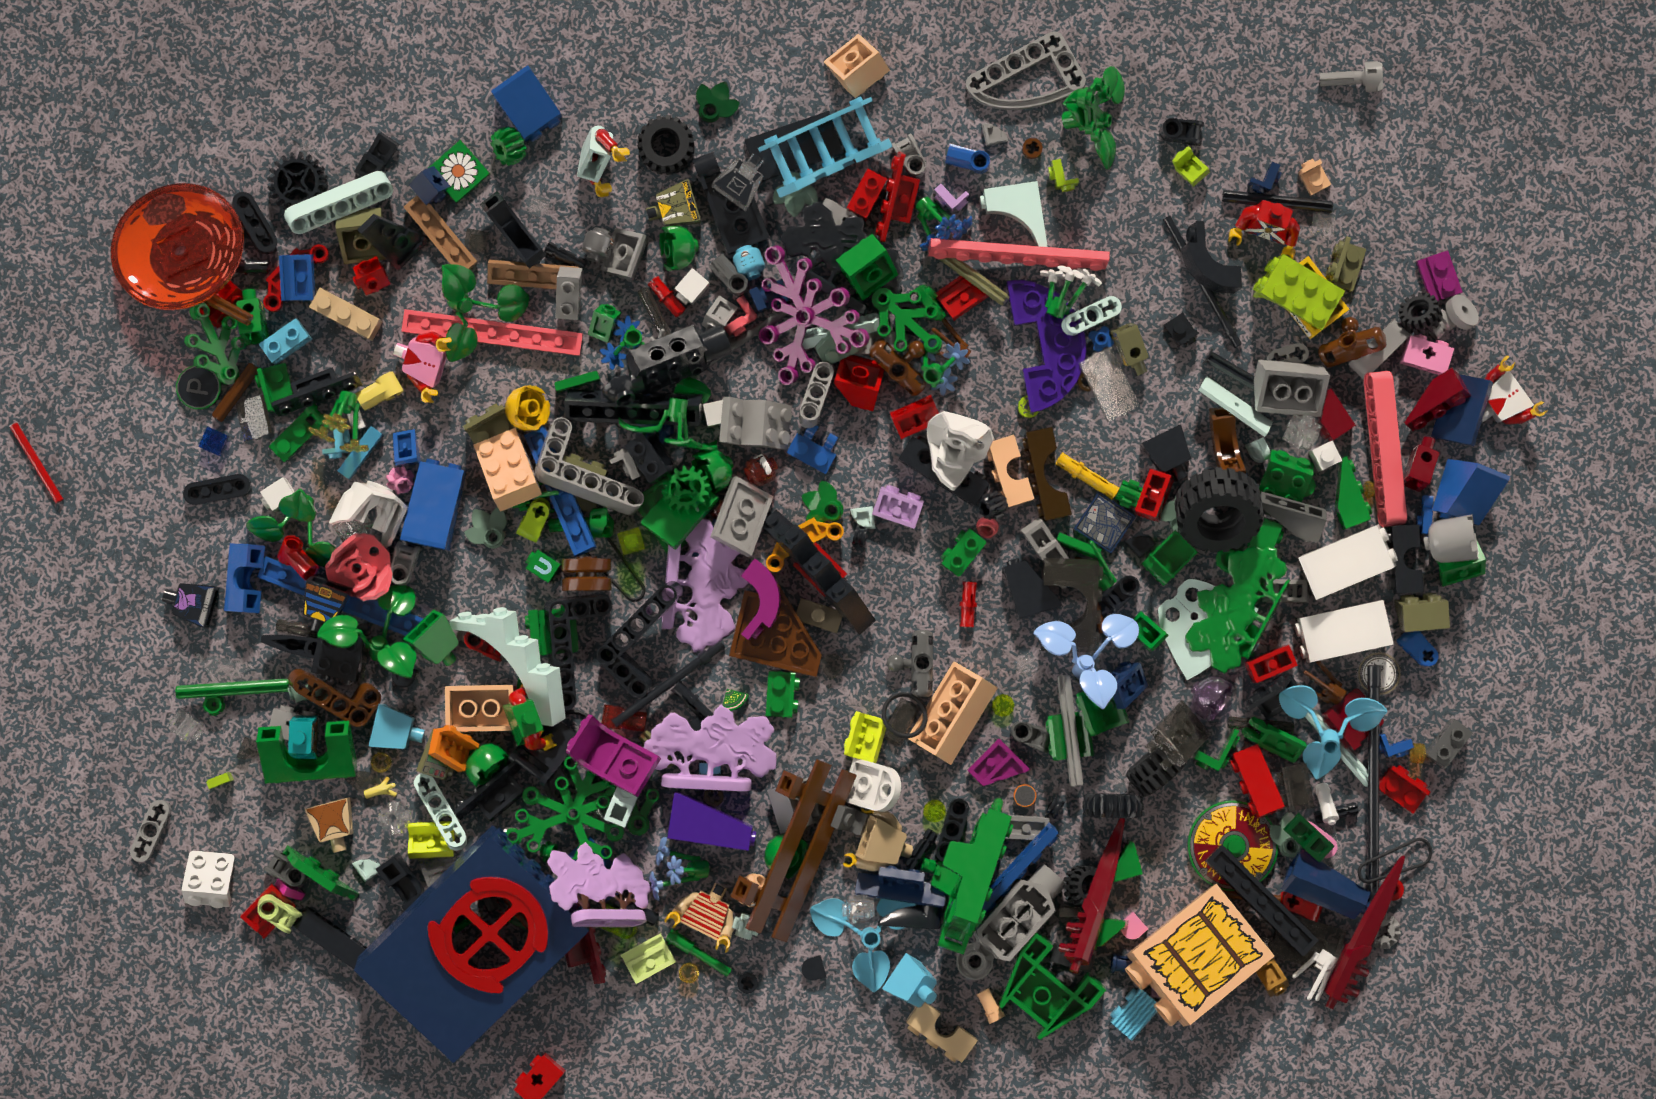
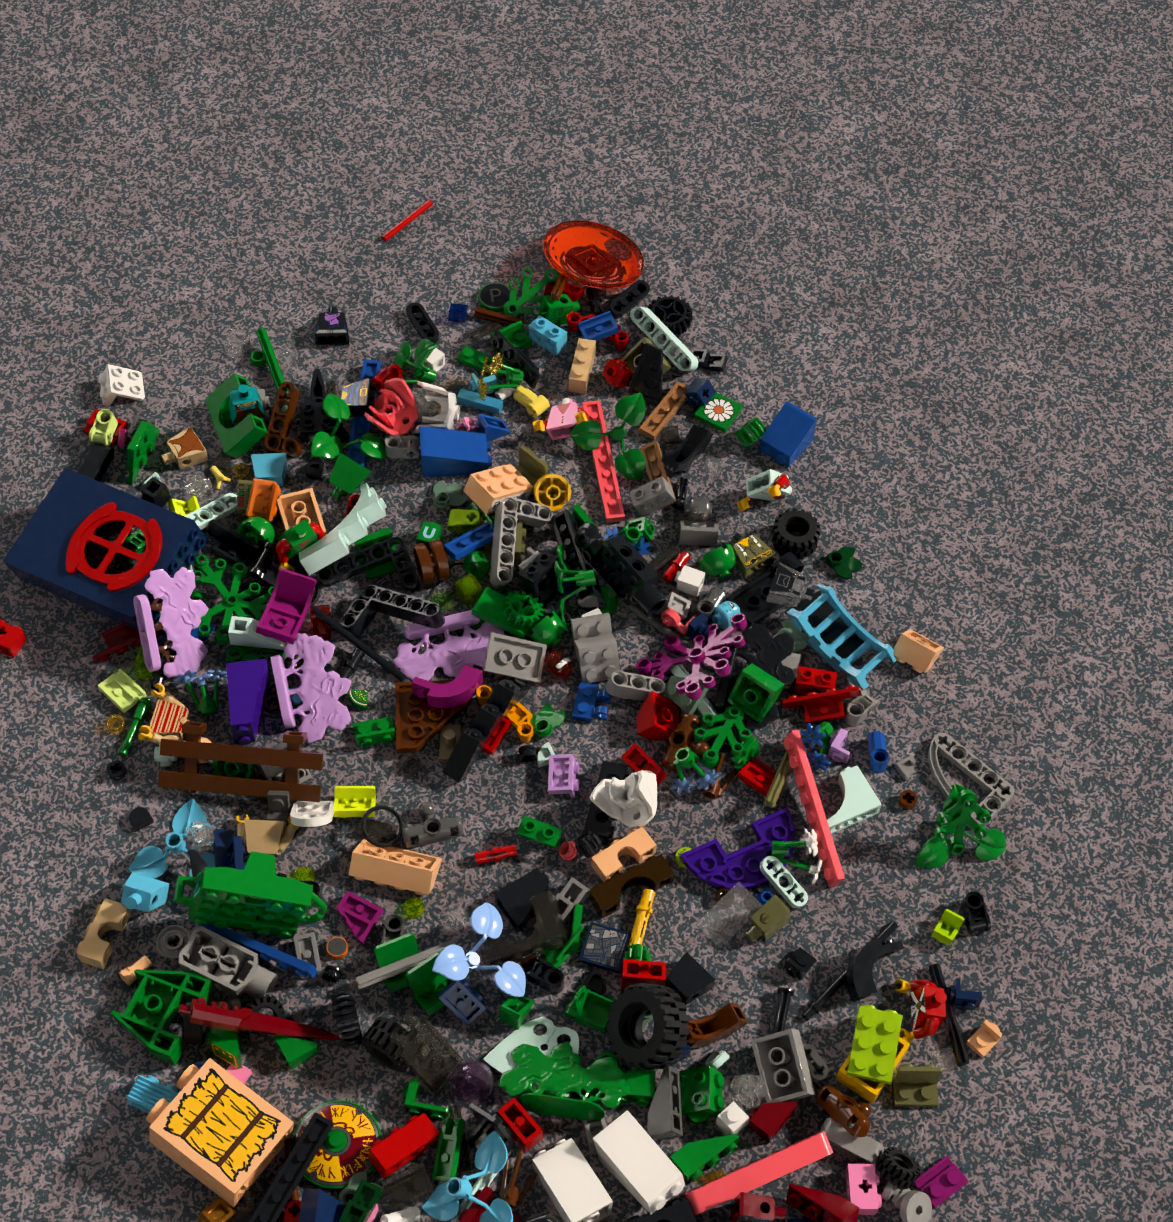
camera: 75 degrees right, 30 degrees down
(141, 833) = (145, 339): light grey beam -> none
(219, 780) = (200, 374): lime tile -> none
(241, 563) = (351, 351): blue arch -> none
(1056, 173) = (892, 824): lime bracket -> none
(1235, 406) = (751, 1015): light aqua piece -> none
(1370, 77) = (1094, 1056): light grey piece -> none

